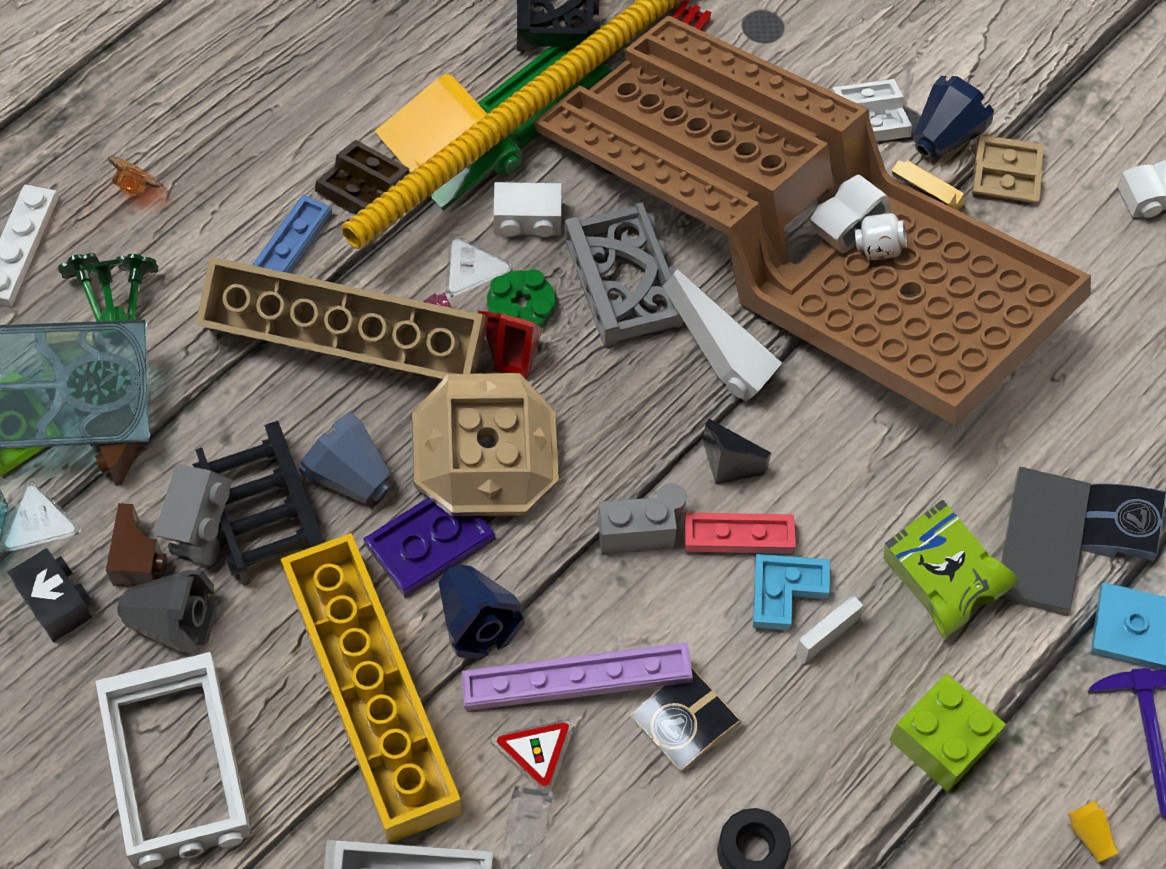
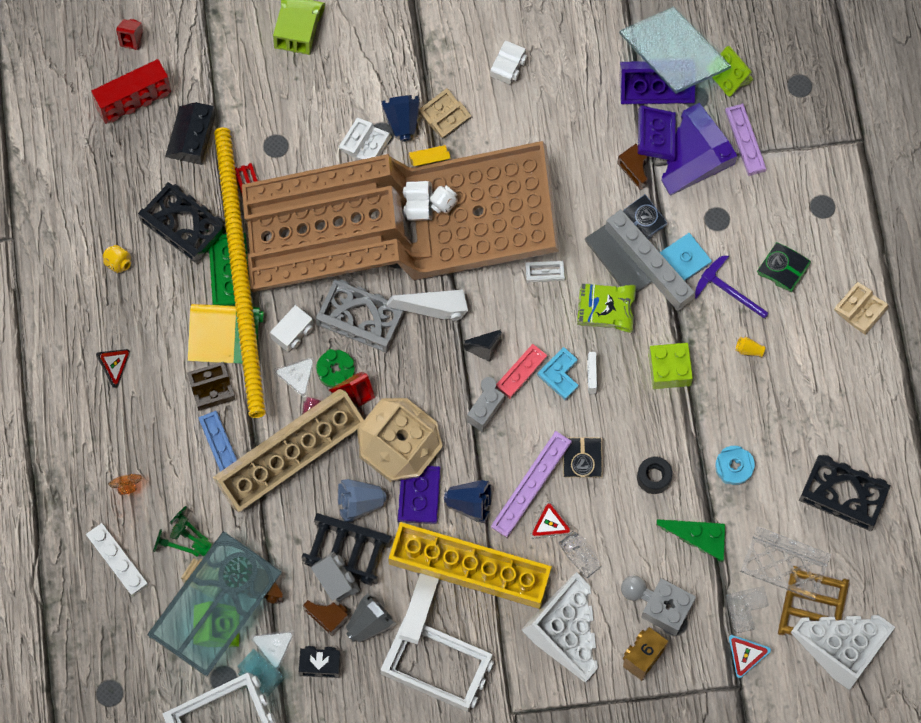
camera: 50 degrees left, 10 degrees up
(237, 662) = (418, 608): none -> white tile
(291, 52) = (113, 364): none -> piece
(913, 458) = (548, 278): none -> white tile
(1075, 574) = (649, 260): none -> light grey brick

